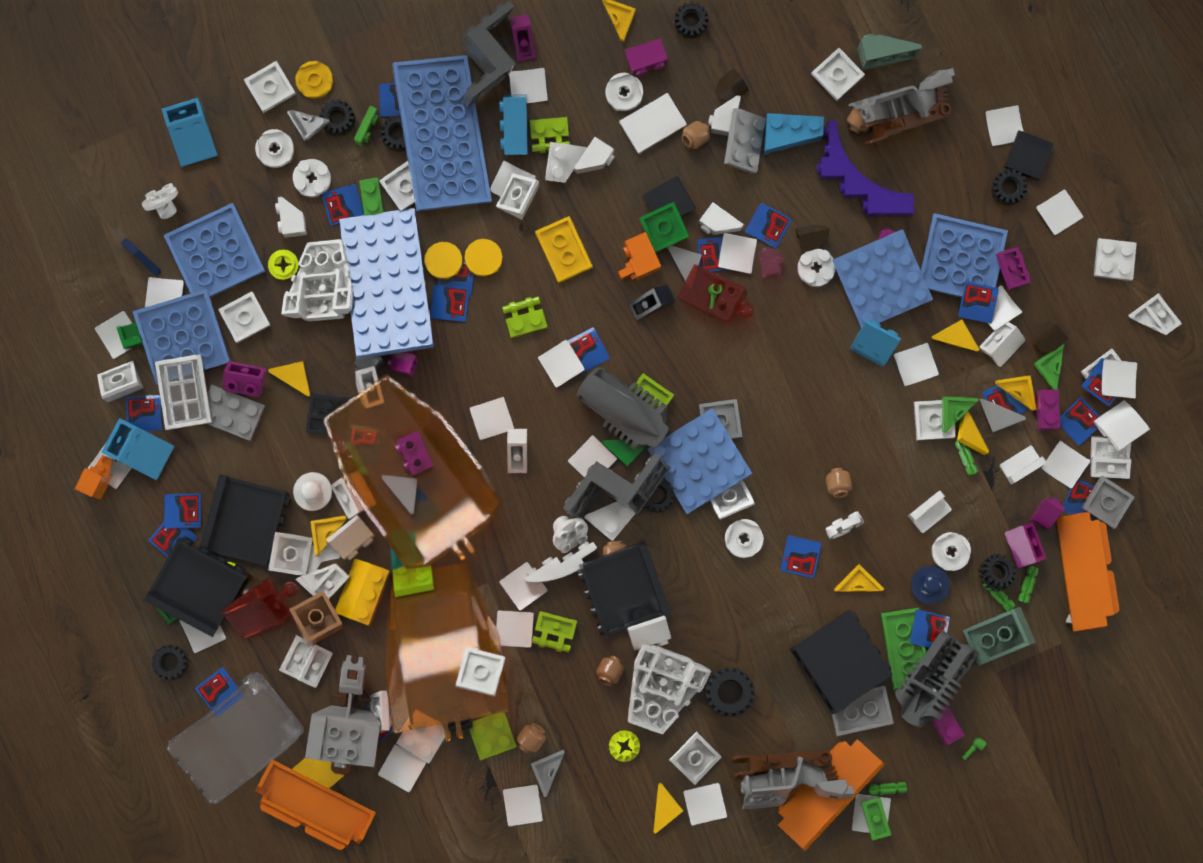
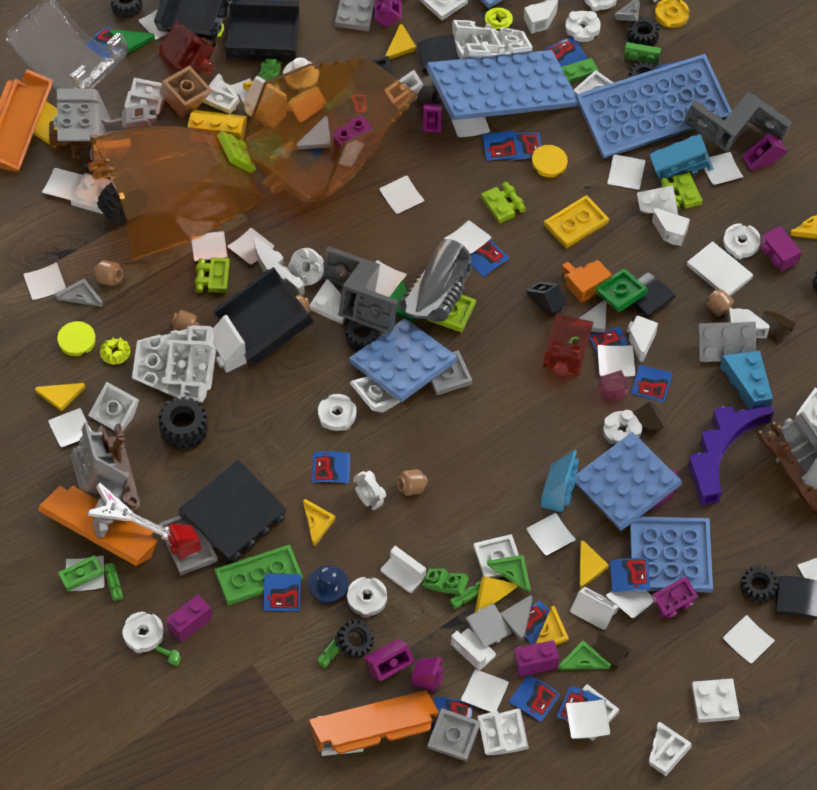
camera: 80 degrees right, 25 degrees down
(224, 665) = (134, 39): none -> green tile
(290, 553) = (240, 65): white slope -> none
(303, 524) = (270, 69): none -> bright green slope
(316, 340) = (436, 49): none -> black slope
(443, 260) = (537, 131): yellow tile -> none
(480, 671) = (156, 178): white plate -> none
(492, 735) = (106, 244): lime plate -> none
(517, 450) = (376, 215): white slope -> none
(518, 195) = (614, 178): white slope -> none
(601, 783) = (76, 338): none -> neon yellow tile
(835, 773) = (117, 510): none -> white piece
(870, 714) = (183, 540): none -> red slope
(932, 683) = (234, 597): dark grey connector -> none
(950, 474) = (445, 582): none -> bright green slope
(953, 759) = (146, 642): none -> white plate
(999, 635) = (290, 656): sand green slope -> none
(1003, 445) = (488, 625): none -> light grey piece
(1028, 584) = (349, 675): bright green axle -> none
(1121, 425) = (539, 734): white slope -> none

